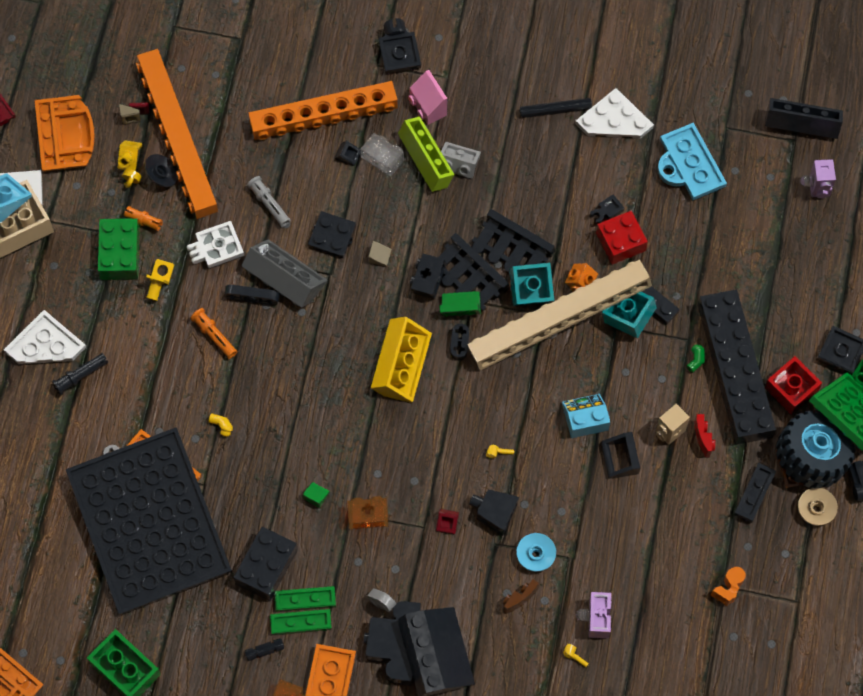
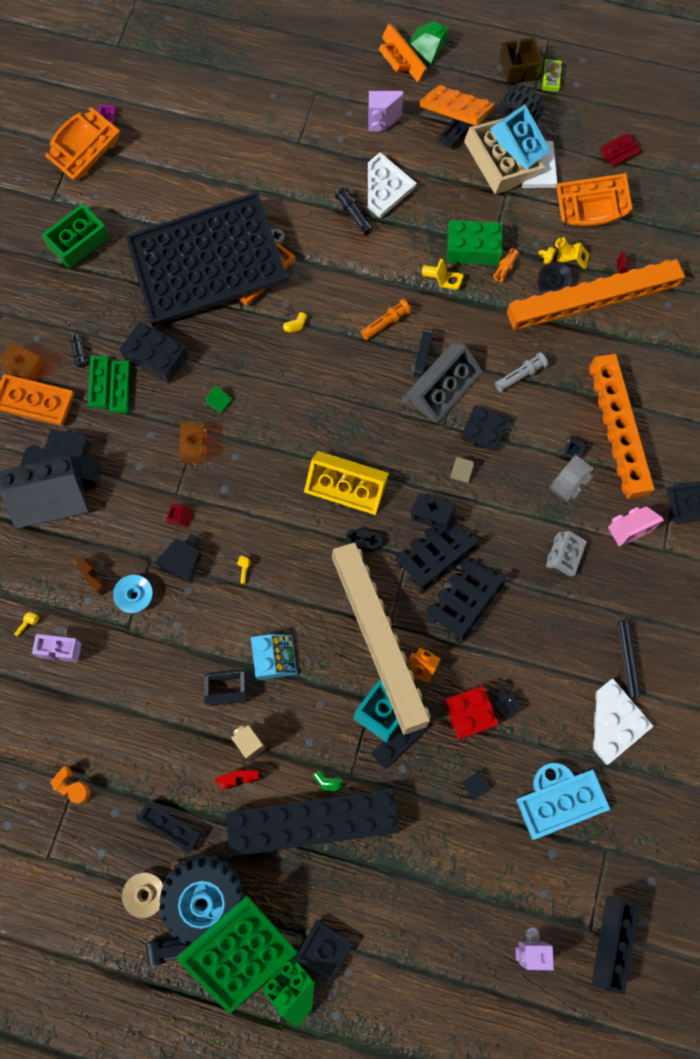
camera: 95 degrees right, 5 degrees up
(129, 114) = (613, 254): dark tan slope -> none
(216, 245) = (476, 325): white piece -> none
(381, 600) = (102, 446): light grey beam -> none
(426, 154) = (570, 518): lime brick -> none
(460, 304) = (402, 542): green panel -> none
(531, 284) = (417, 611): teal brick -> none
(684, 233) = (476, 785): none -> black tile
(793, 385) = (282, 885): red brick -> none

